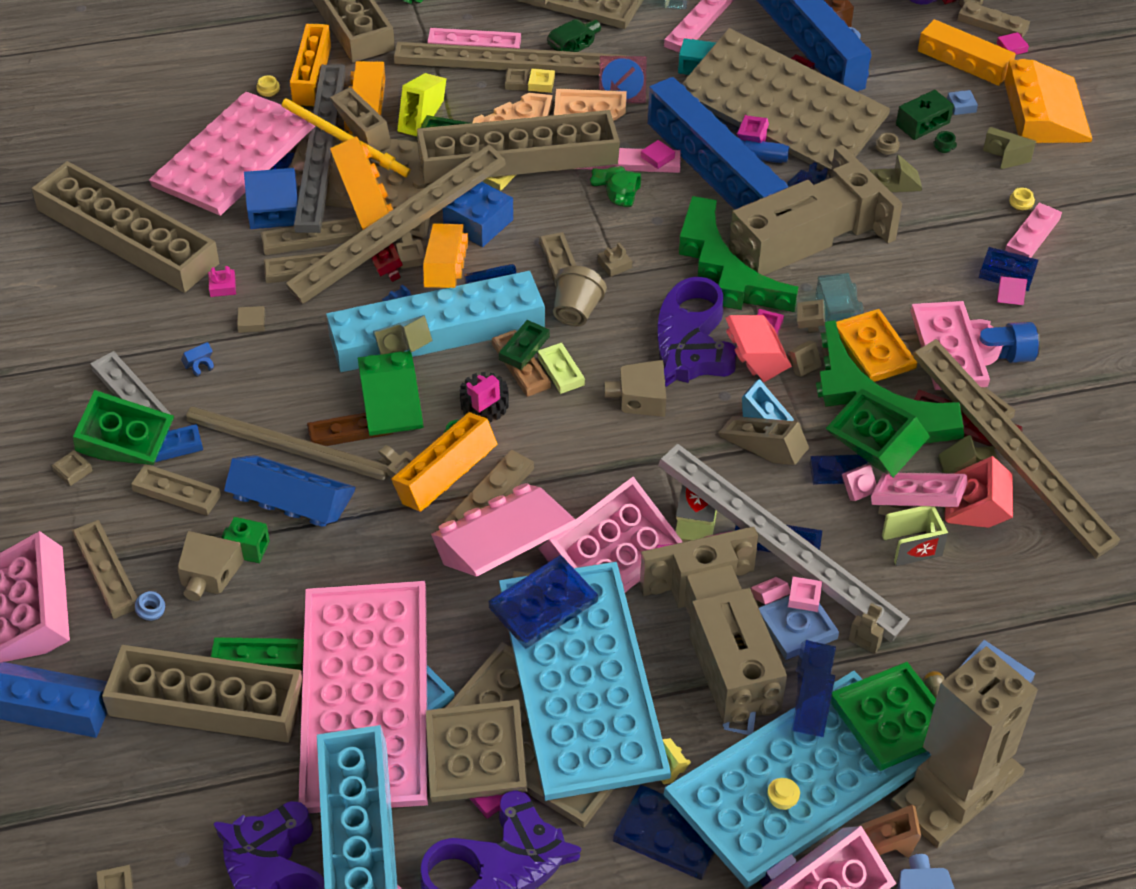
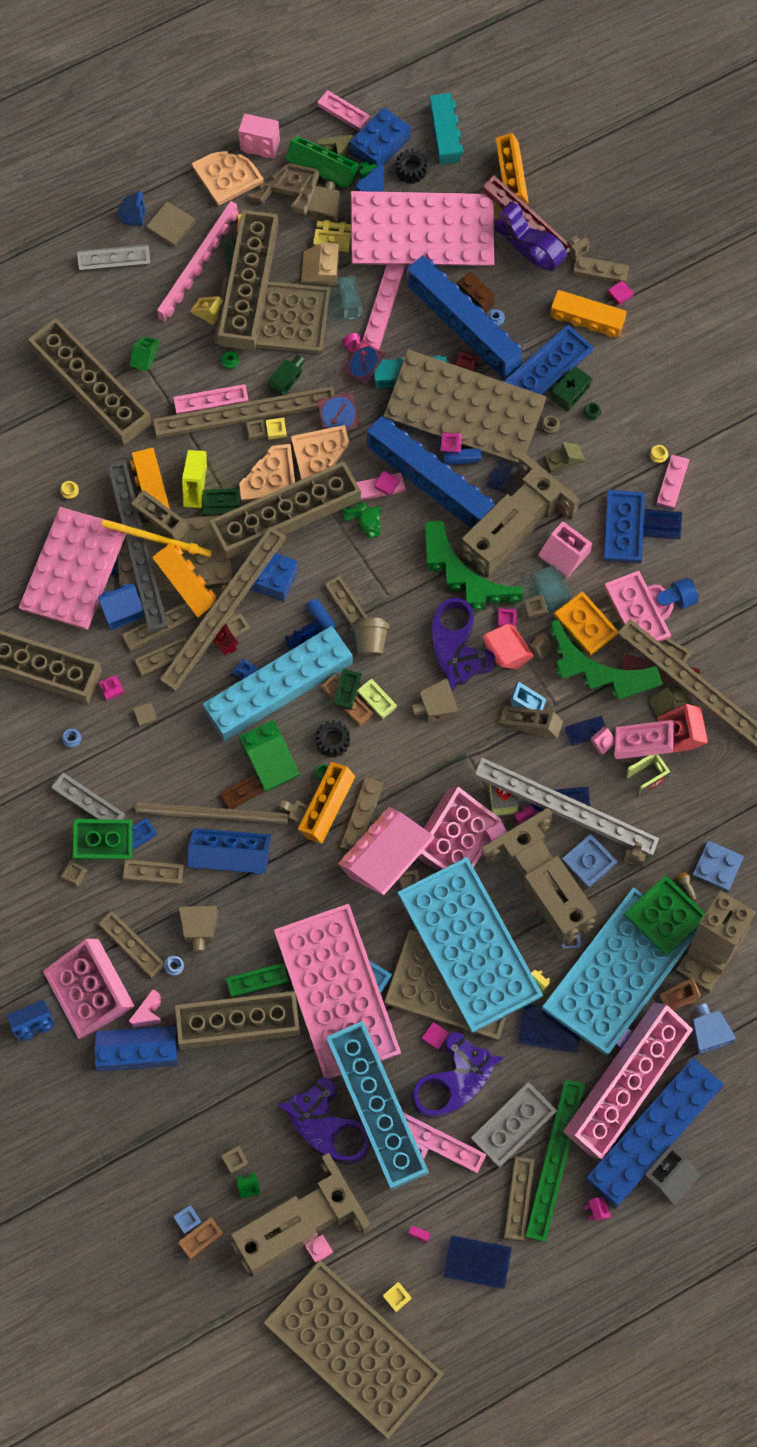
camera: 15 degrees left, 20 degrees up
(77, 654) = (143, 1015): none -> bright pink slope
(145, 320) = (67, 734): none -> medium blue plate
(198, 356) = (122, 759): blue tile -> none
(251, 535) = (216, 897): green brick -> none
(311, 55) = (96, 463): light orange brick -> none
(403, 336) = (266, 709): olive slope -> none
(445, 255) = (266, 628): light orange brick -> none
(475, 751) = (420, 1012): dark tan plate -> none
(484, 393) = (336, 743): dark pink tile -> none
(512, 13) = (230, 364): none -> green plate
(517, 255) = (318, 613): none -> blue piece
(543, 601) = (432, 902): clear blue plate -> none
(614, 260) = (384, 590): dark tan tile -> none
(665, 22) = (350, 340): none -> dark pink tile
(672, 38) = (364, 361): none -> piece
(770, 590) = (566, 842): bright pink plate -> none
(783, 793) = (614, 990): light yellow plate -> none
(805, 594) = (590, 842): bright pink plate -> none
(813, 688) = (613, 909): clear blue arch -> none
(870, 262) = (565, 549): none -> bright pink slope
(879, 432) = (606, 701): green slope -> none
(910, 83) = (551, 362): none -> blue plate
(955, 261) = (624, 526): none -> blue plate
(963, 102) = (595, 365): medium blue plate -> none
(1011, 290) = (668, 545): dark pink tile -> none
(1012, 147) = (643, 405): olive slope -> none
(1045, 103) = (658, 352): light orange slope -> none

